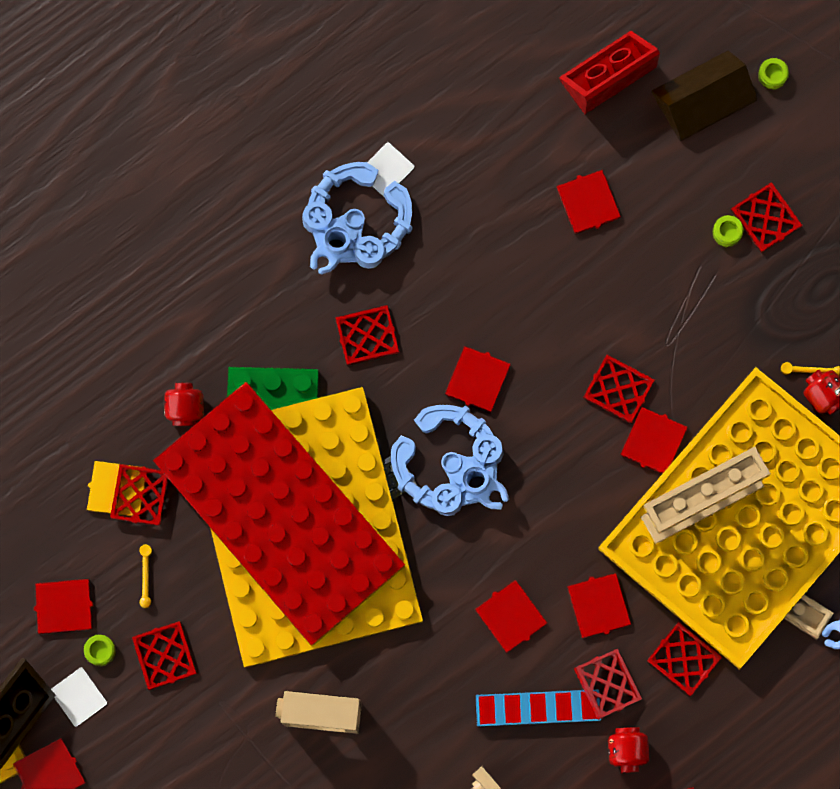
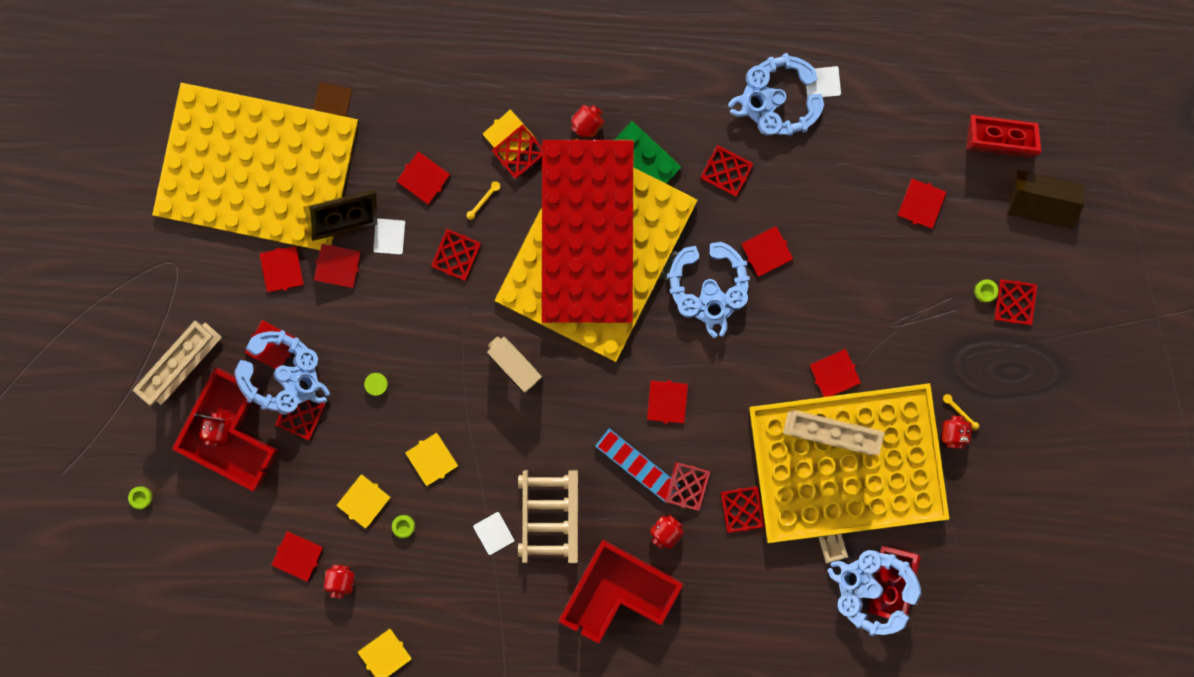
camera: 40 degrees right, 10 degrees up
(99, 650) = (422, 220): lime tile -> none
(599, 605) = (721, 438): red piece -> none
(628, 370) = (847, 342): red window -> none
(773, 73) = (1097, 221): lime tile -> none

